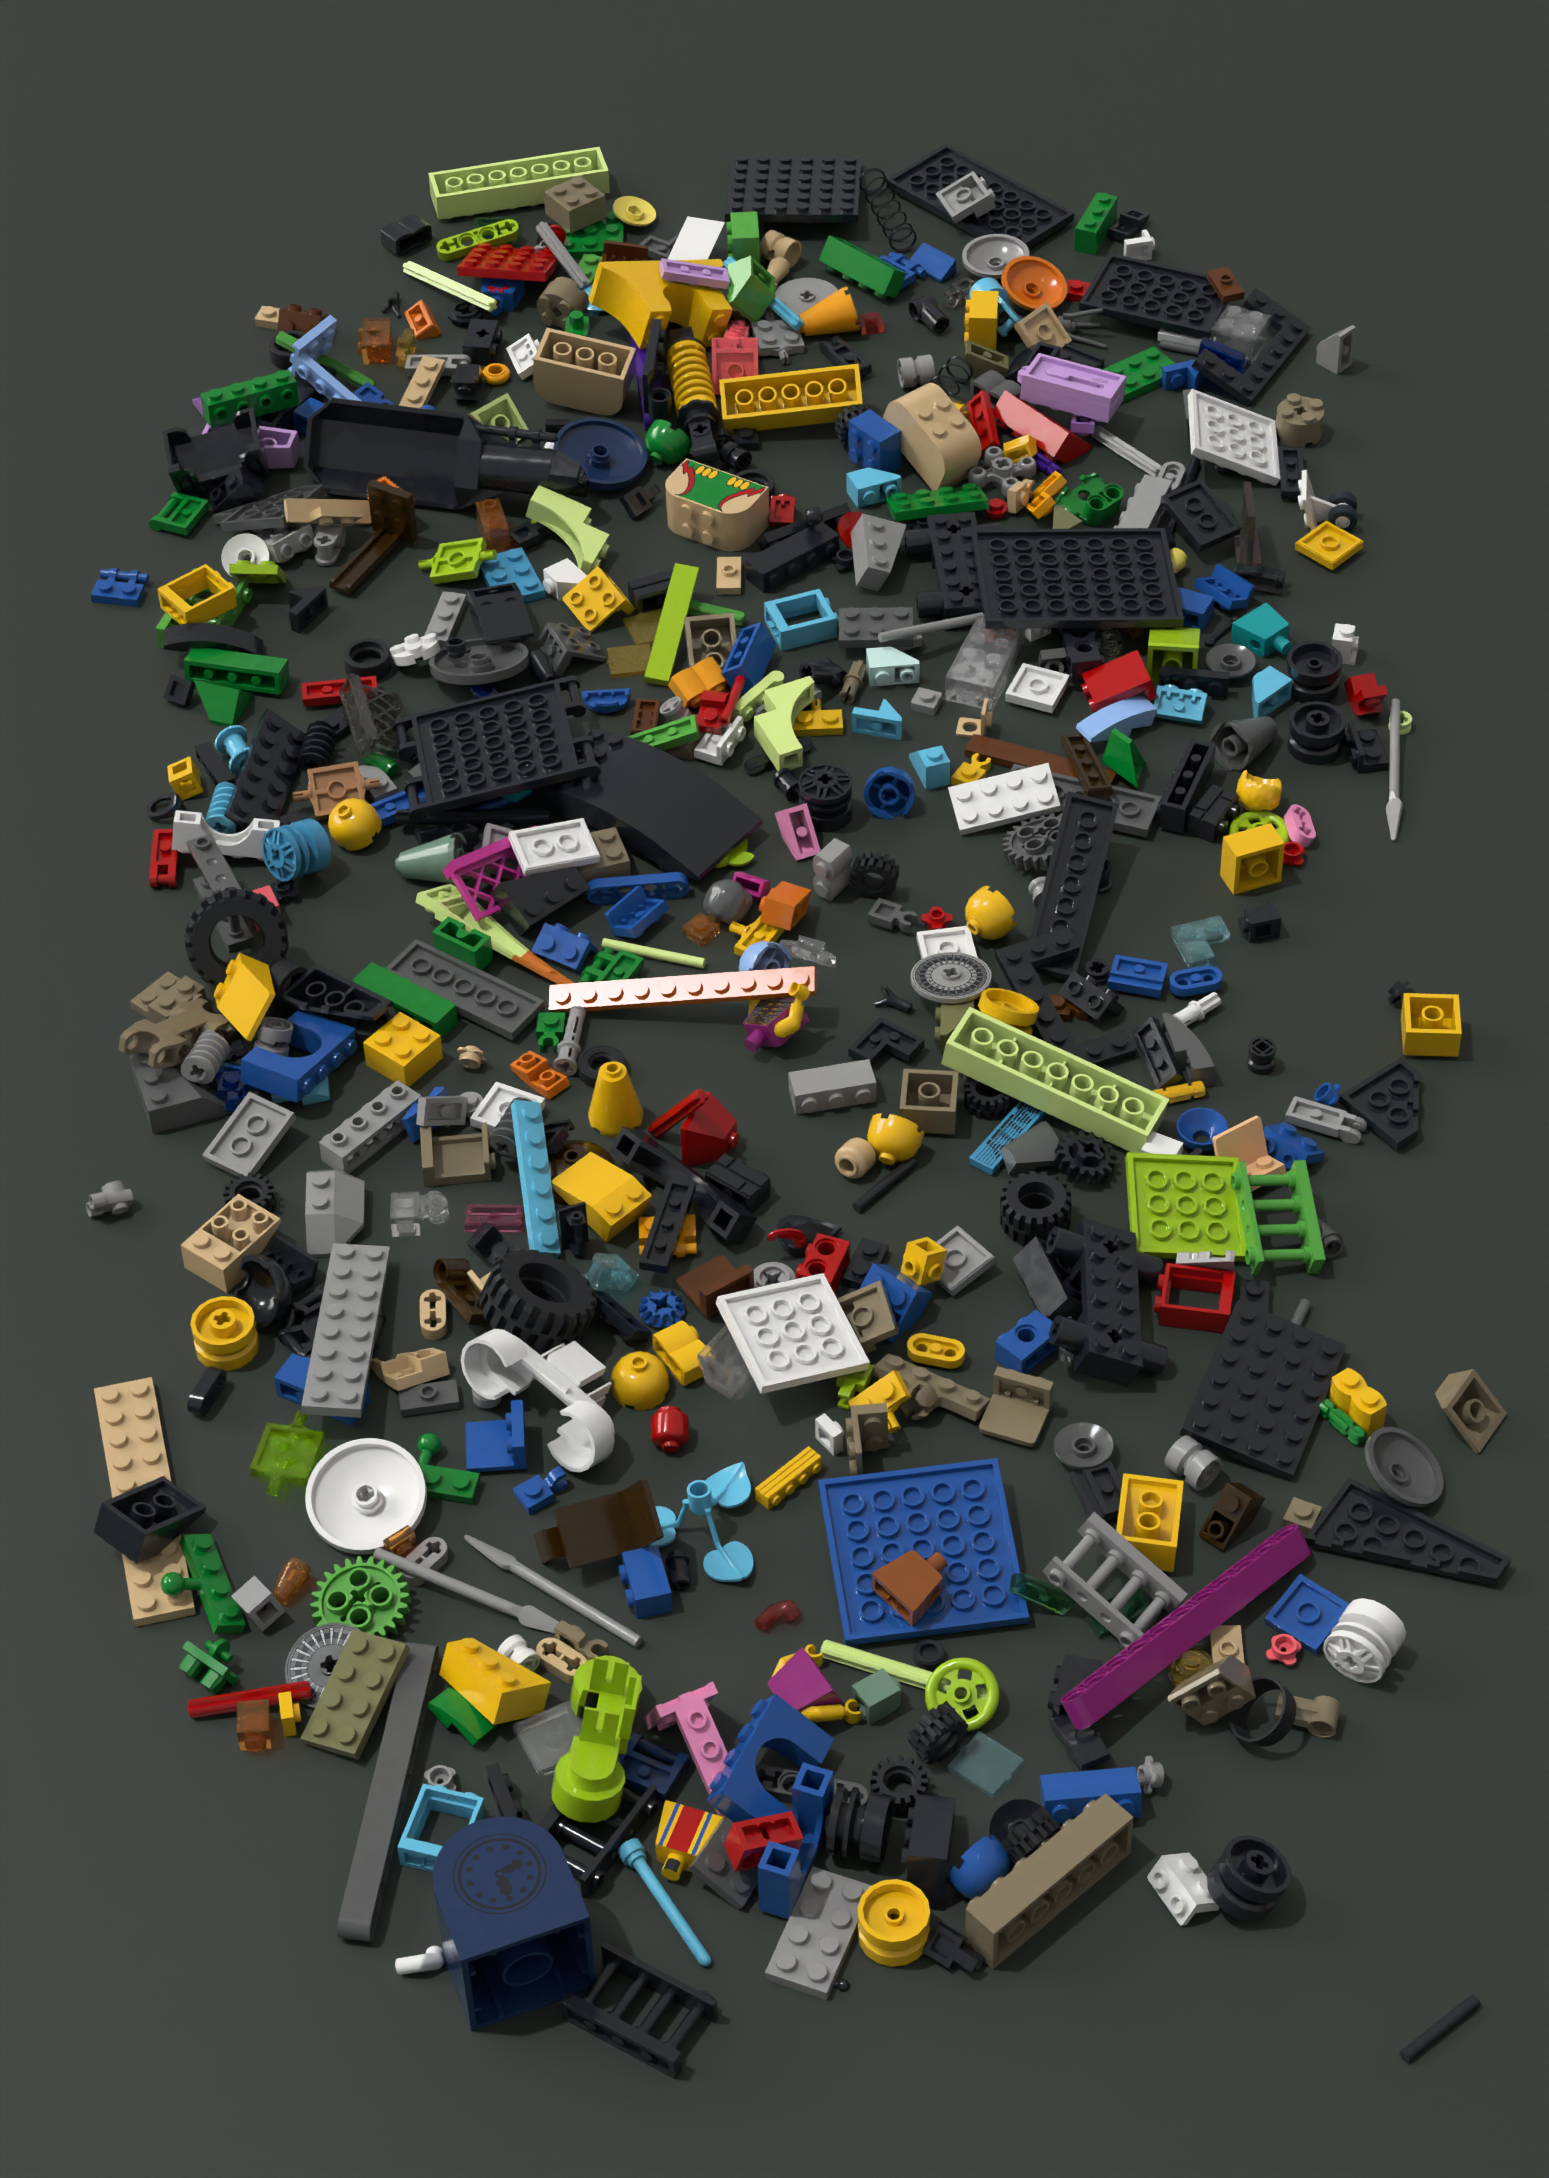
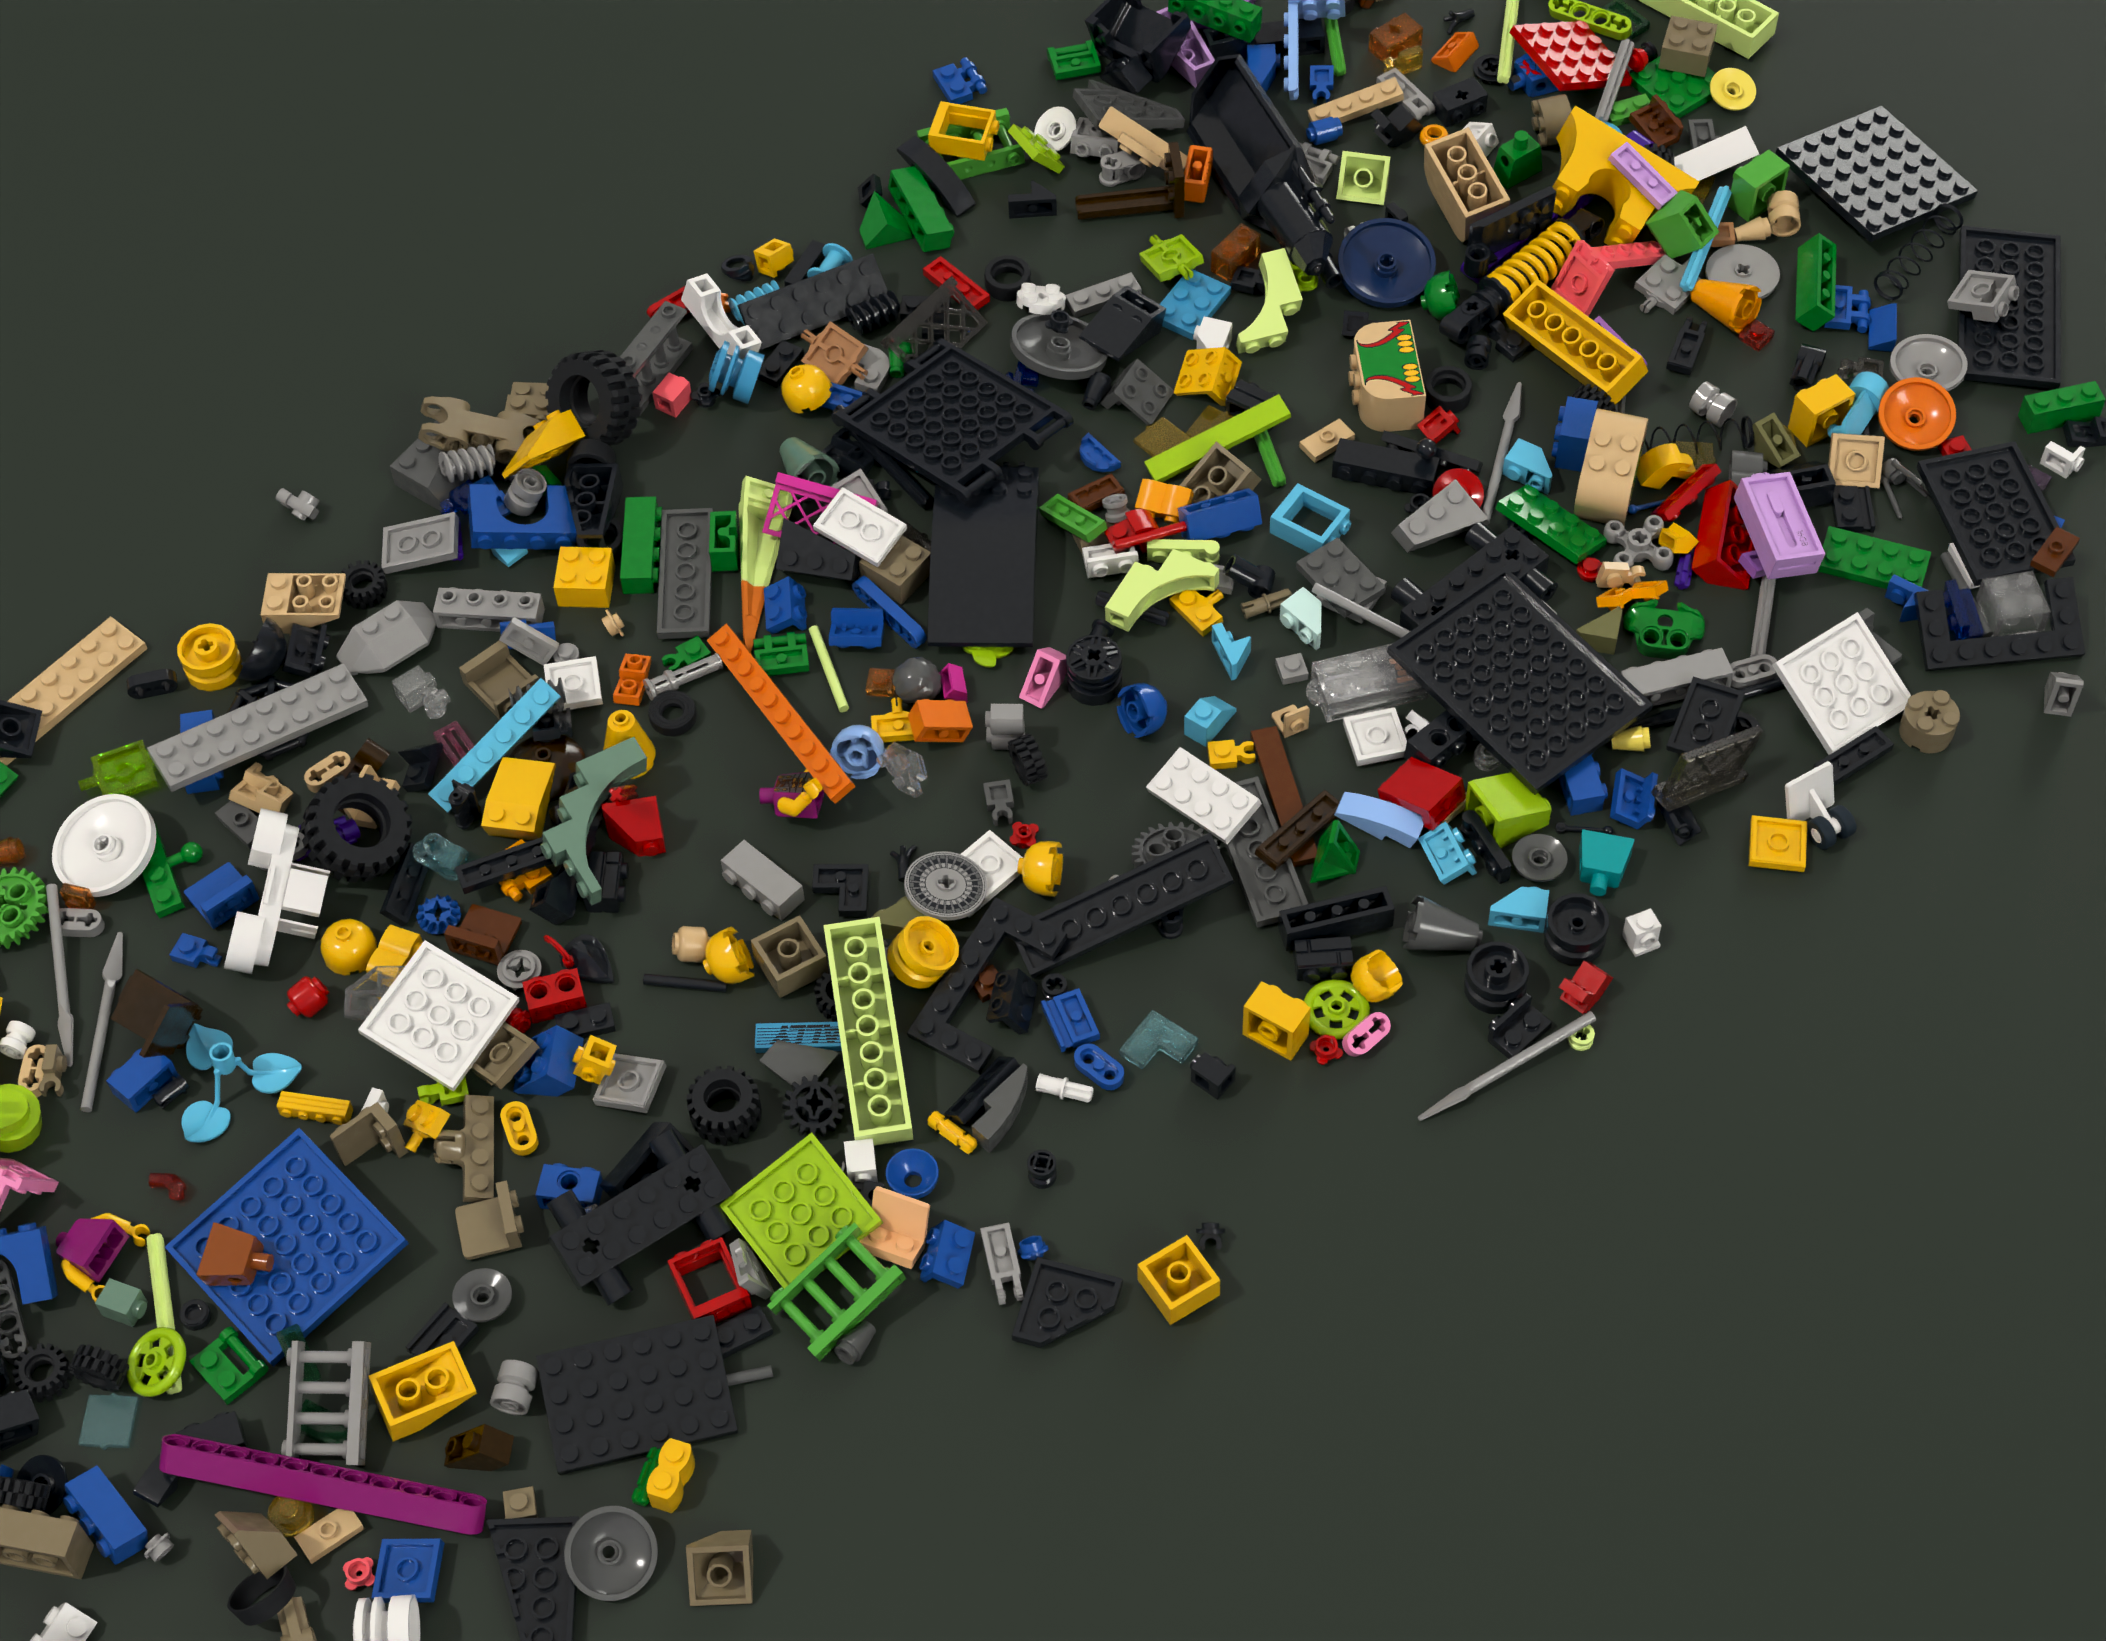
camera: 55 degrees right, 10 degrees up
(676, 1148) = (577, 809): none -> sand green arch
(810, 474) = (1510, 416): none -> light grey piece
(1008, 1660) = (221, 1372): none -> green plate

